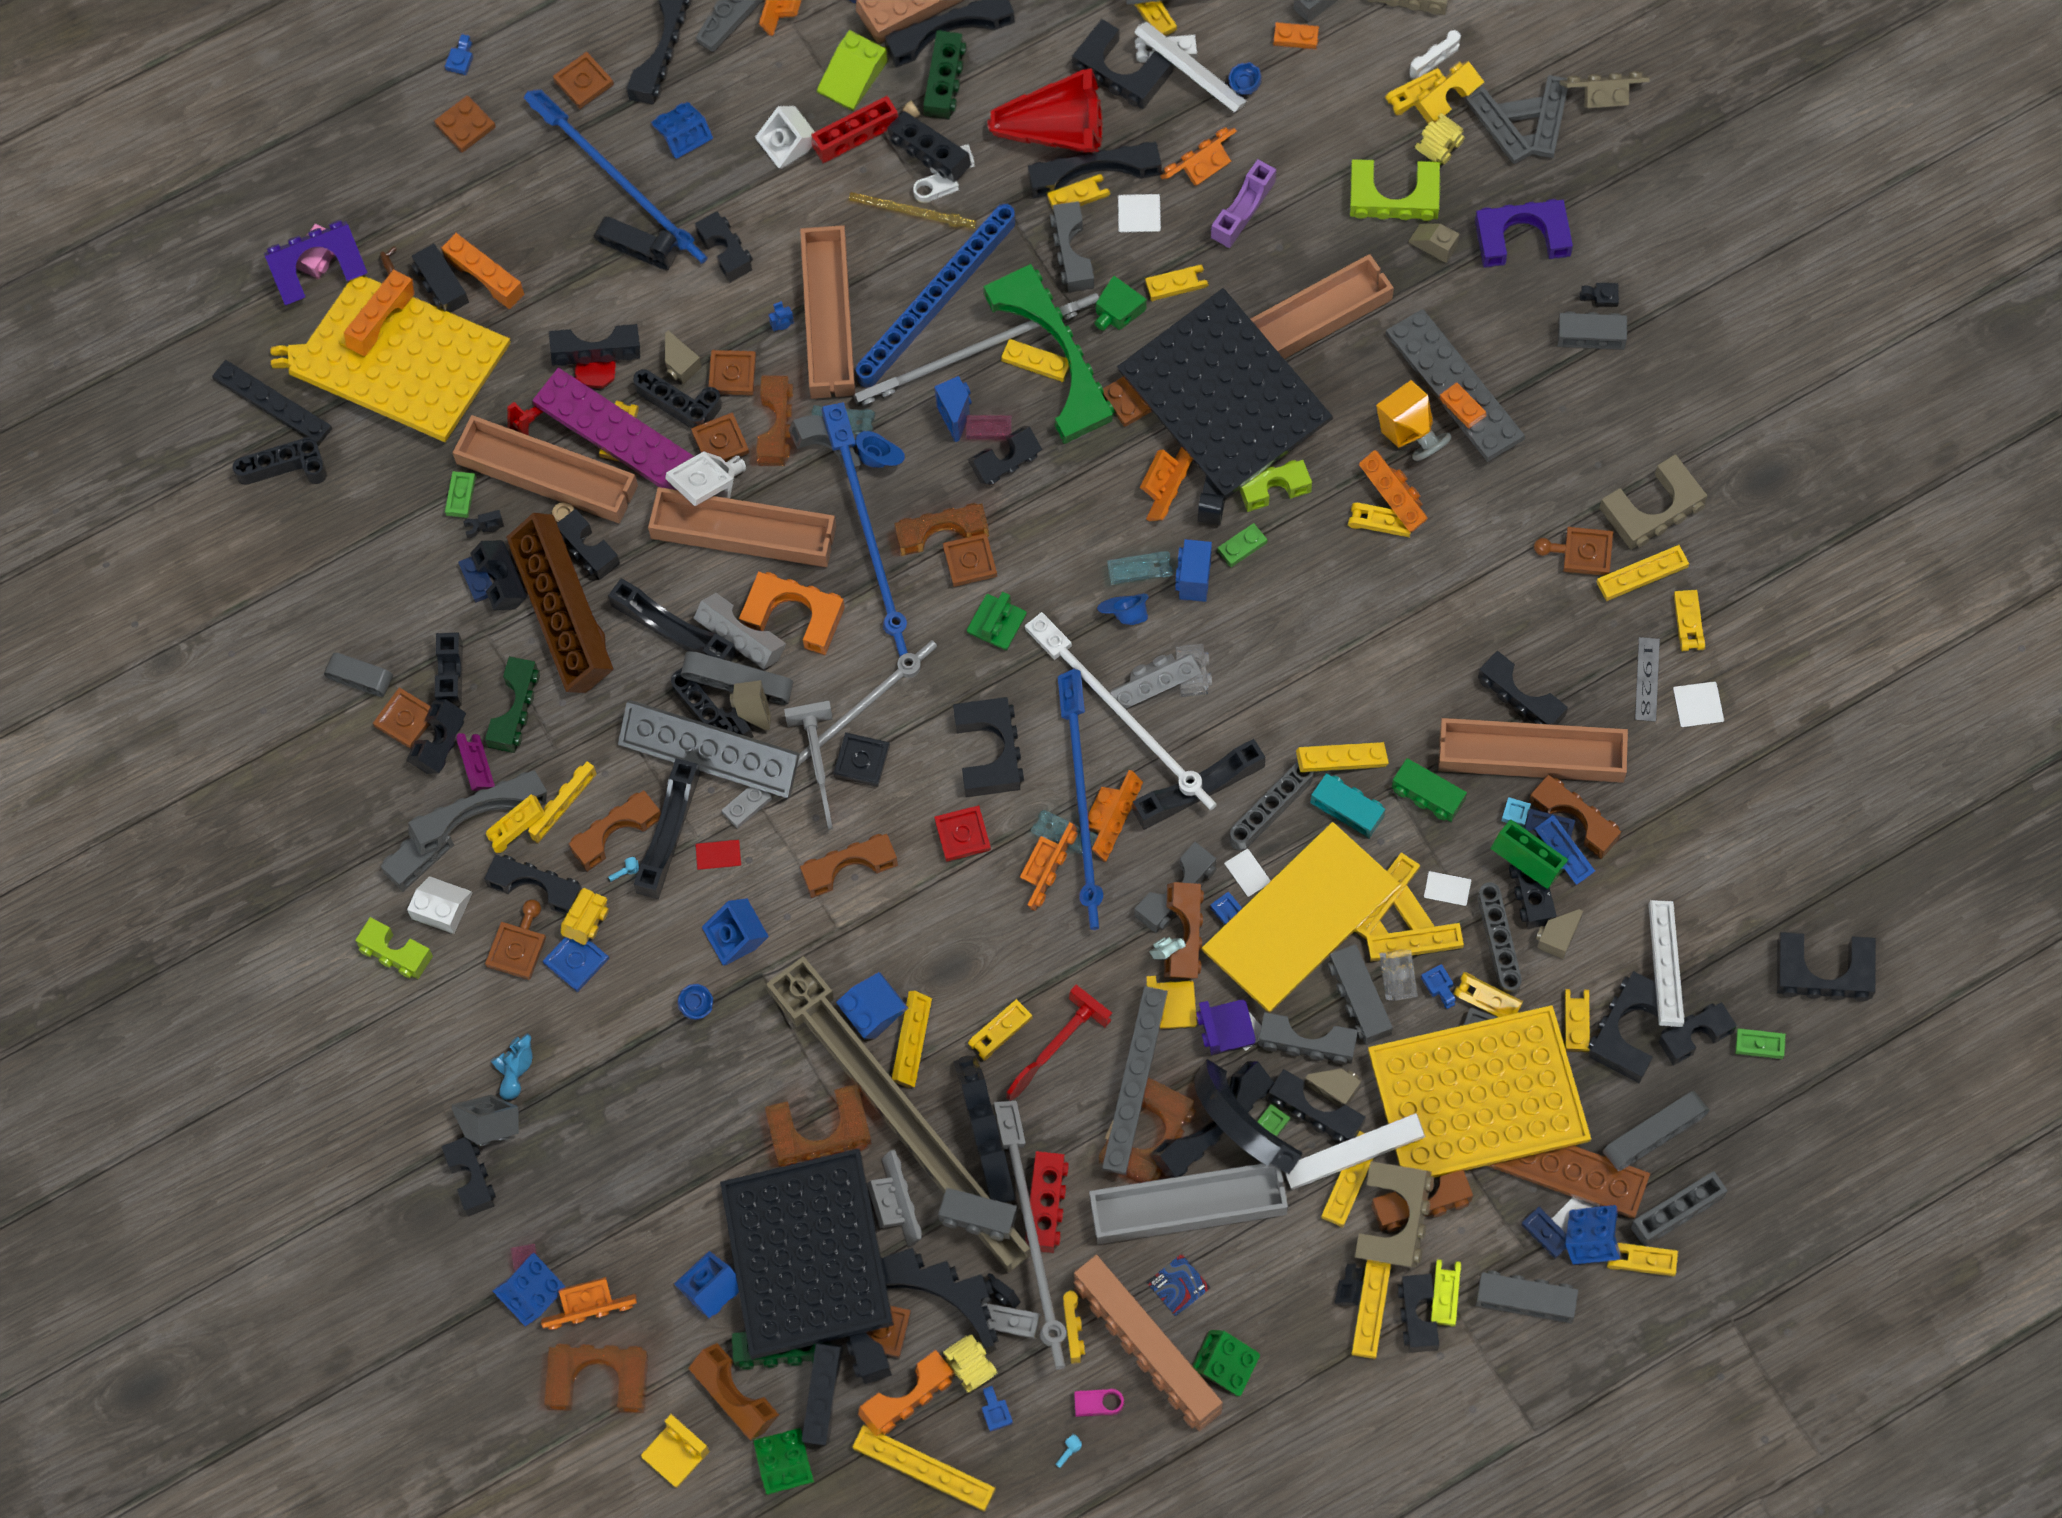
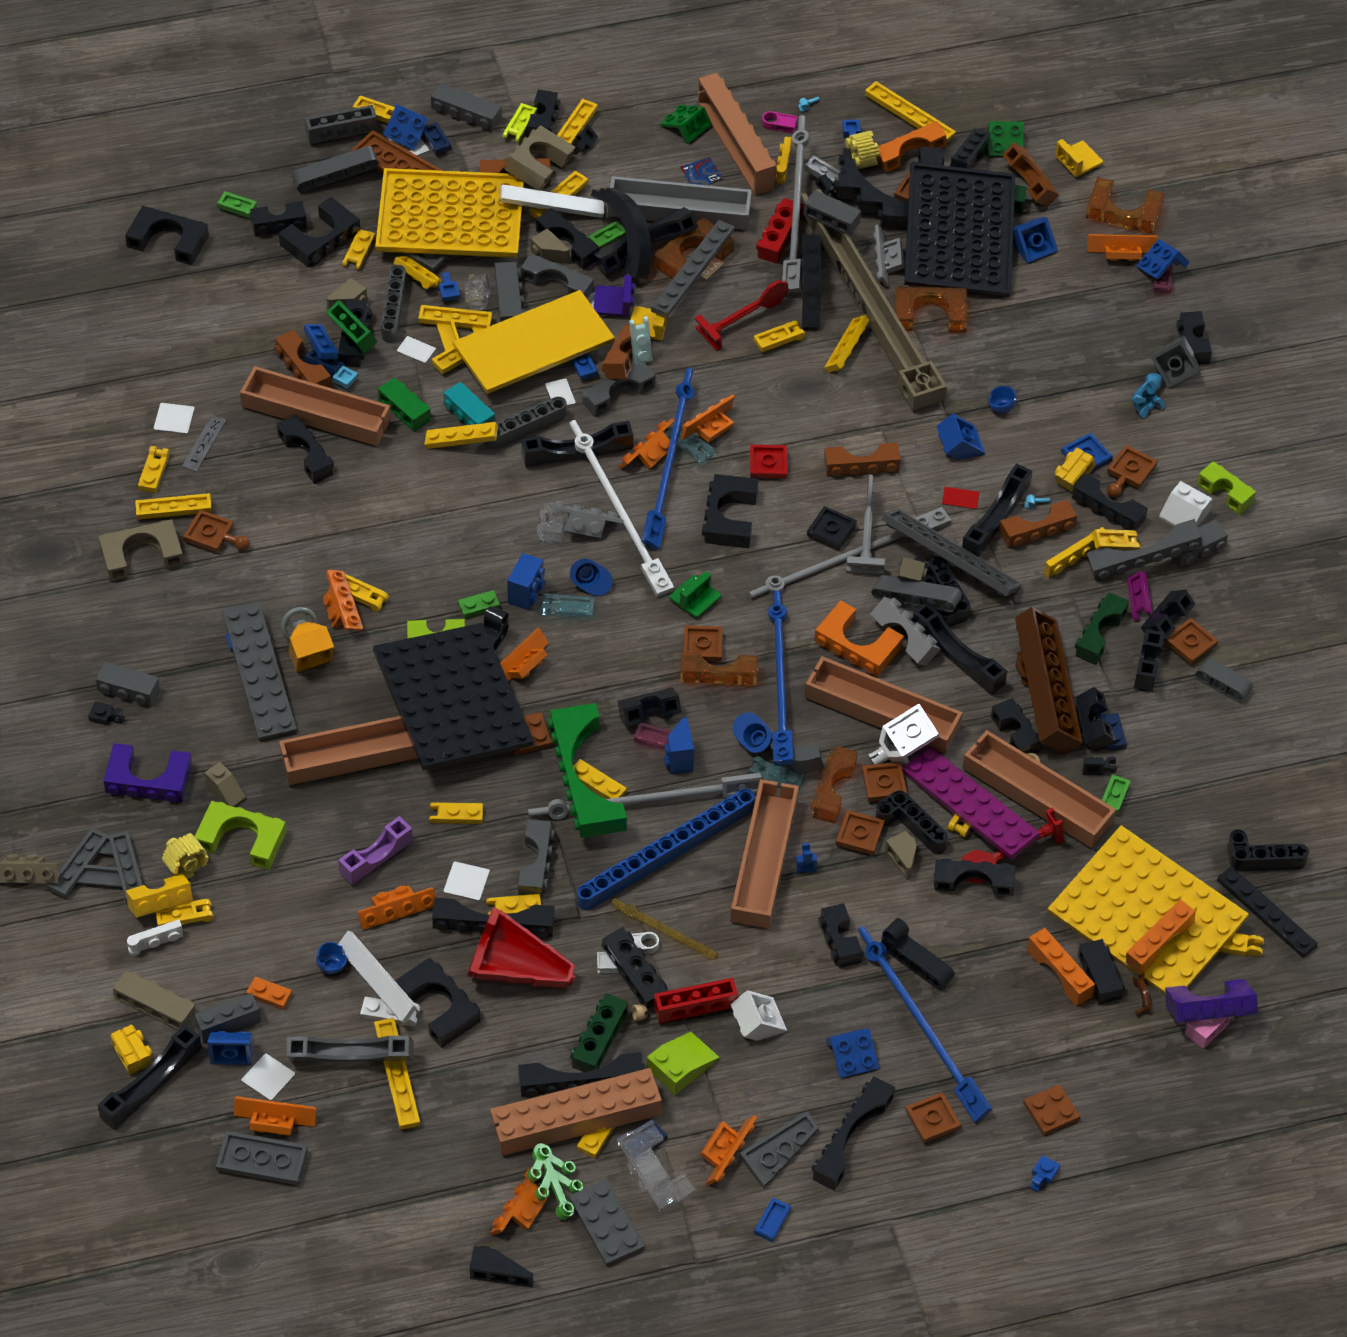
camera: 170 degrees left, 15 degrees down
(872, 1006) = (871, 363): blue slope -> none
(1118, 305) = (512, 801): green torso -> none
(1463, 405) = (262, 640): orange plate -> none
(1666, 963) = (281, 256): white tile -> none

